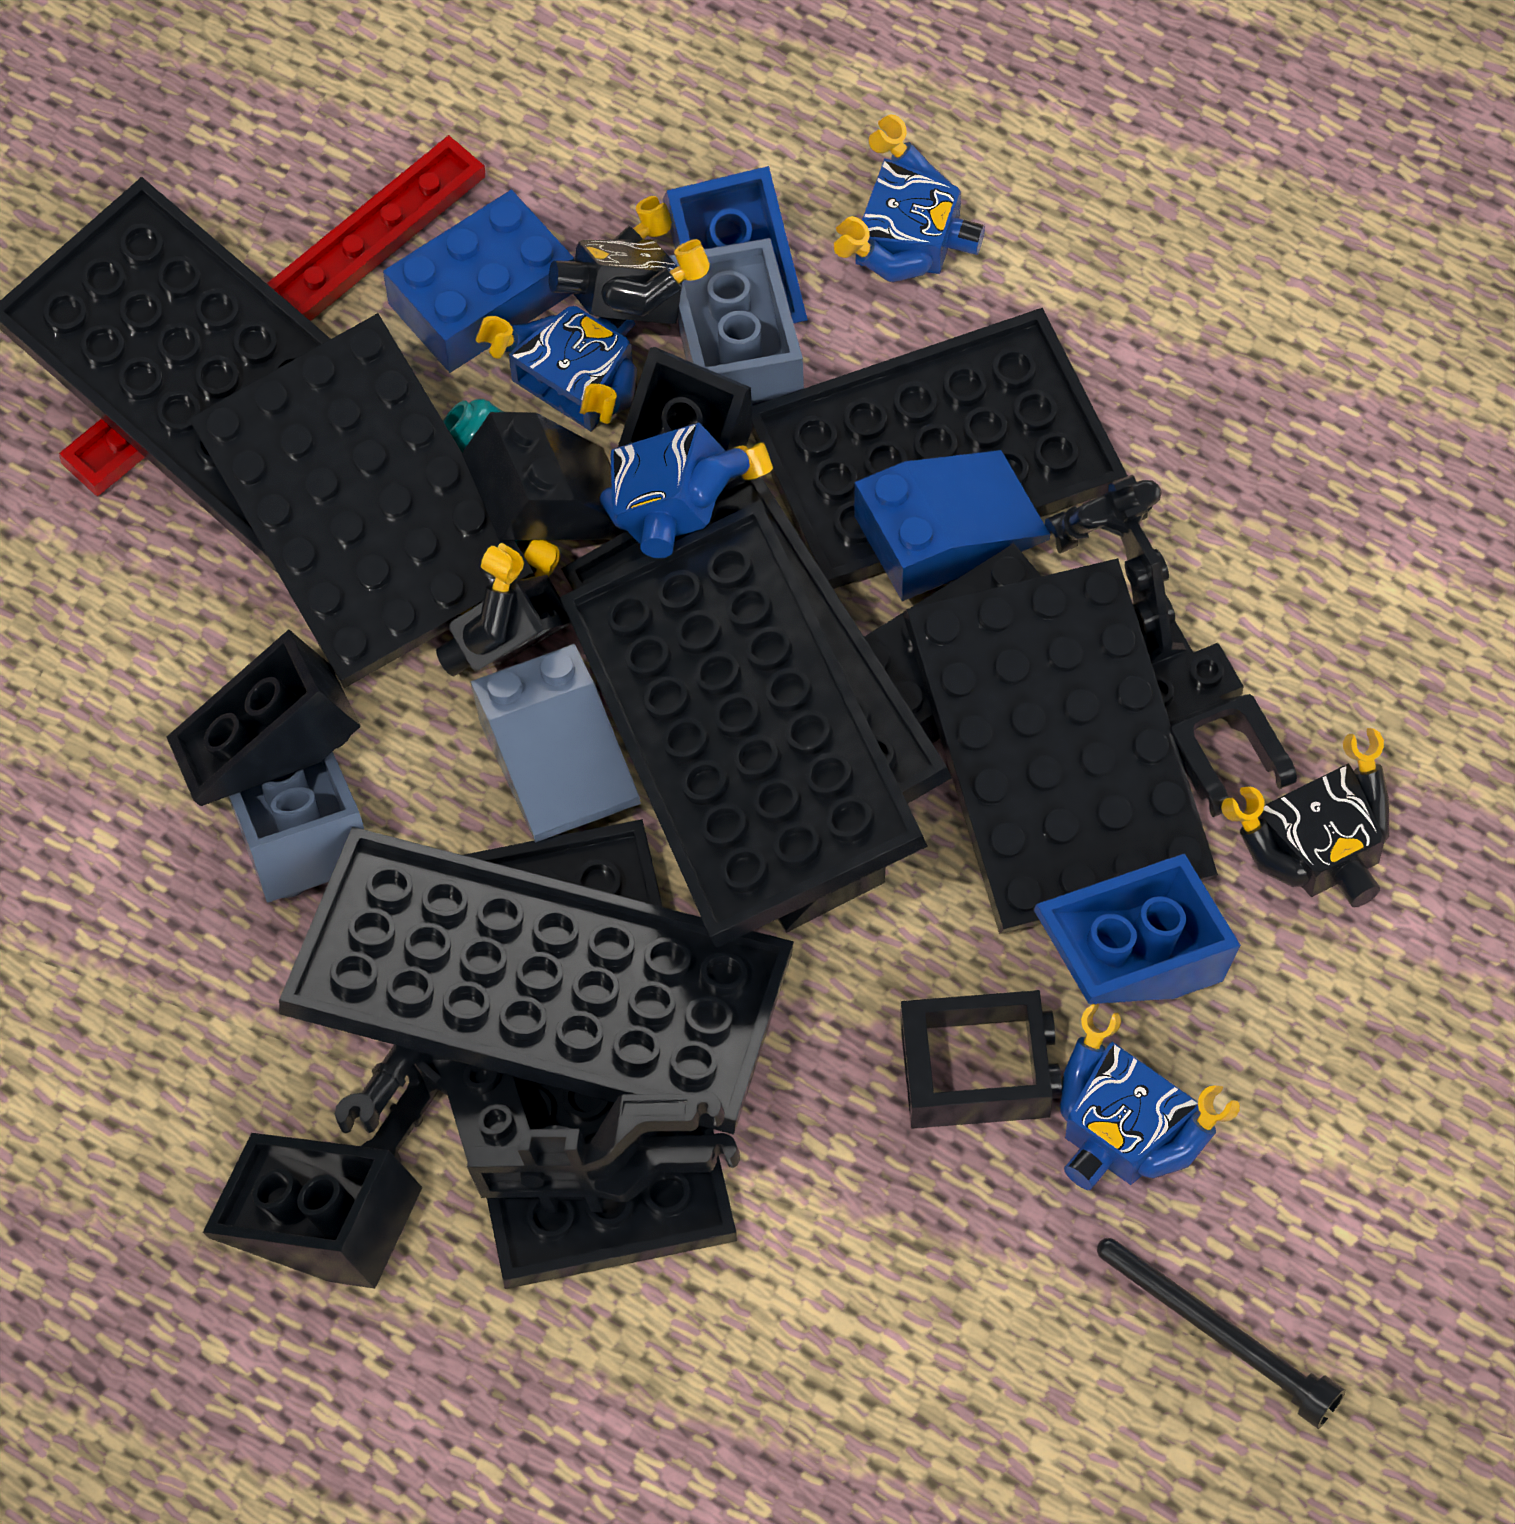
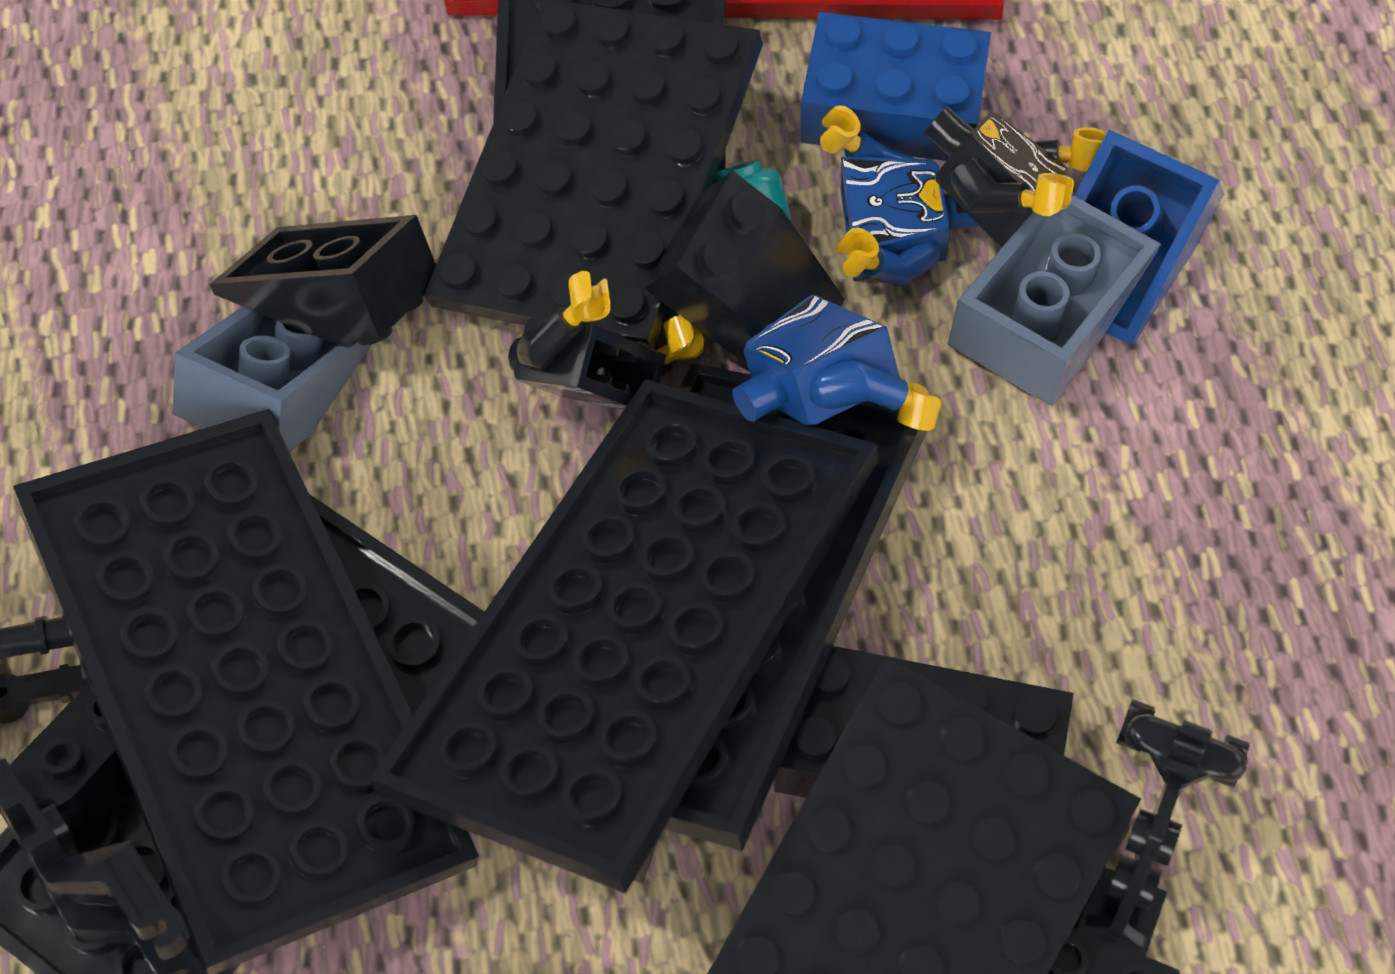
camera: 50 degrees right, 0 degrees up
(554, 742) = (501, 488): sand blue slope -> none
(680, 394) = (924, 321): black slope -> none
(908, 215) = (1313, 332): blue torso -> none
(944, 517) = (1045, 614): blue slope -> none
(962, 396) = (1120, 552): black plate -> none

